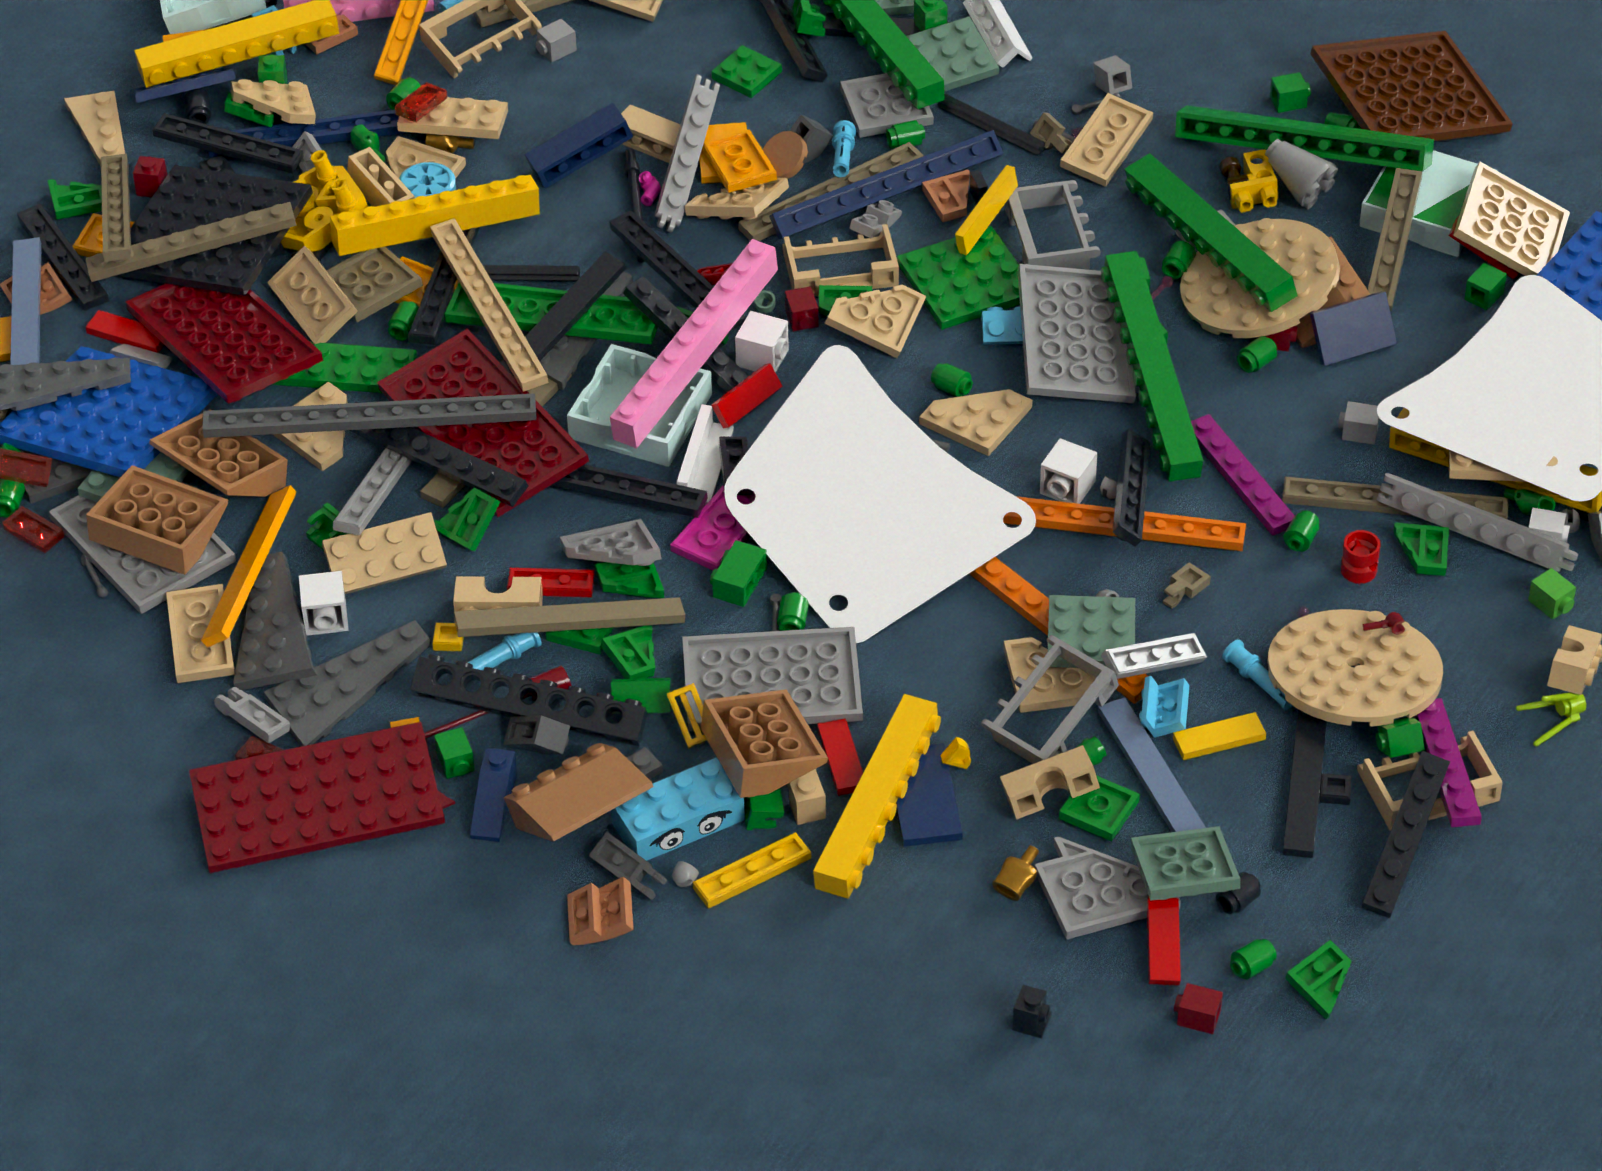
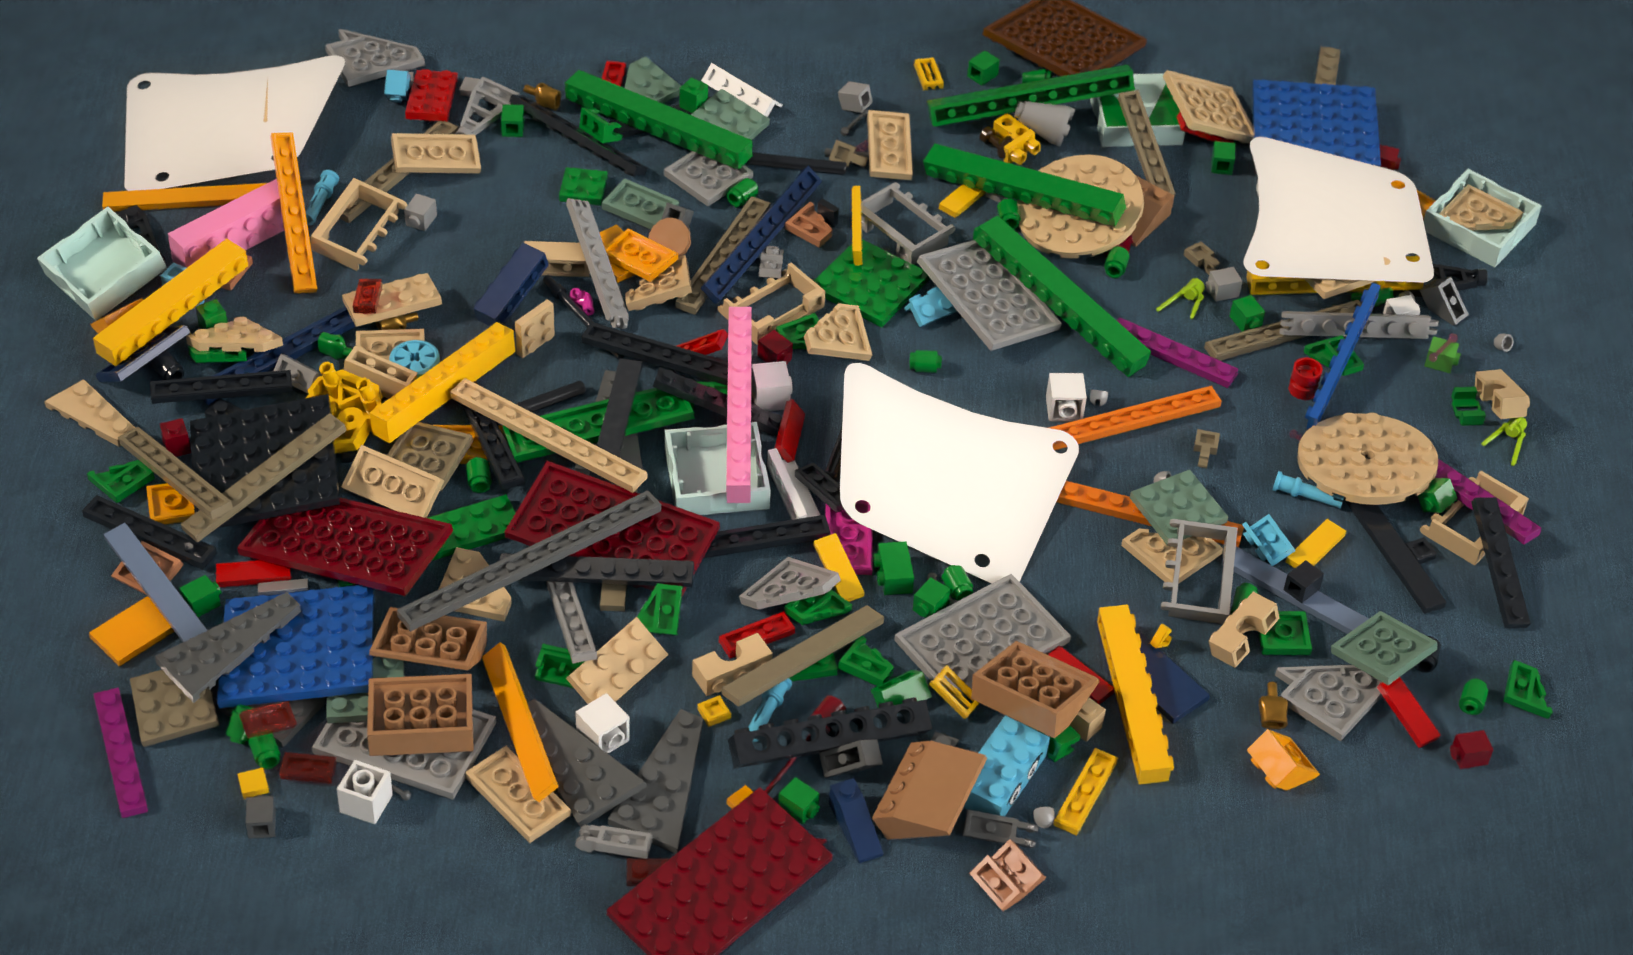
camera: 35 degrees left, 0 degrees up
(60, 334) = (201, 595): none -> green brick
(61, 570) = (364, 792): none -> white head
(401, 91) = (332, 297): green brick -> none
(568, 196) = (534, 328): none -> tan plate
(680, 550) = (835, 559): none -> yellow tile
(749, 616) = (931, 598): none -> green brick
(782, 105) = (637, 203): none -> sand green plate
(843, 143) = (704, 214): medium azure pin -> none
(977, 419) = (964, 382): tan plate -> none
(980, 928) = (1281, 761): none -> light orange slope
(1031, 1012) = (1367, 805): black brick -> none
(1131, 487) = (1124, 395): black plate -> none
(1140, 227) = (960, 200): none -> yellow tile
(1154, 655) = (1237, 505): light grey tile -> none
(1160, 761) = (1303, 581): none -> black brick
(1221, 90) = (930, 83): none -> yellow tile
(1301, 531) = (1250, 376): green brick -> none
(1317, 416) = (1191, 291): none -> lime plant
(1353, 328) = (1168, 218): dark blue tile -> none
(1359, 463) = (1247, 313): none -> green brick
(1362, 382) = (1200, 255): none -> dark tan plate
(1392, 621) = (1369, 415): dark red hand -> none
(1419, 546) = (1340, 361): none -> blue plate
(1540, 651) = (1466, 398): none -> green piece
(1571, 578) = (1452, 339): none -> hinge

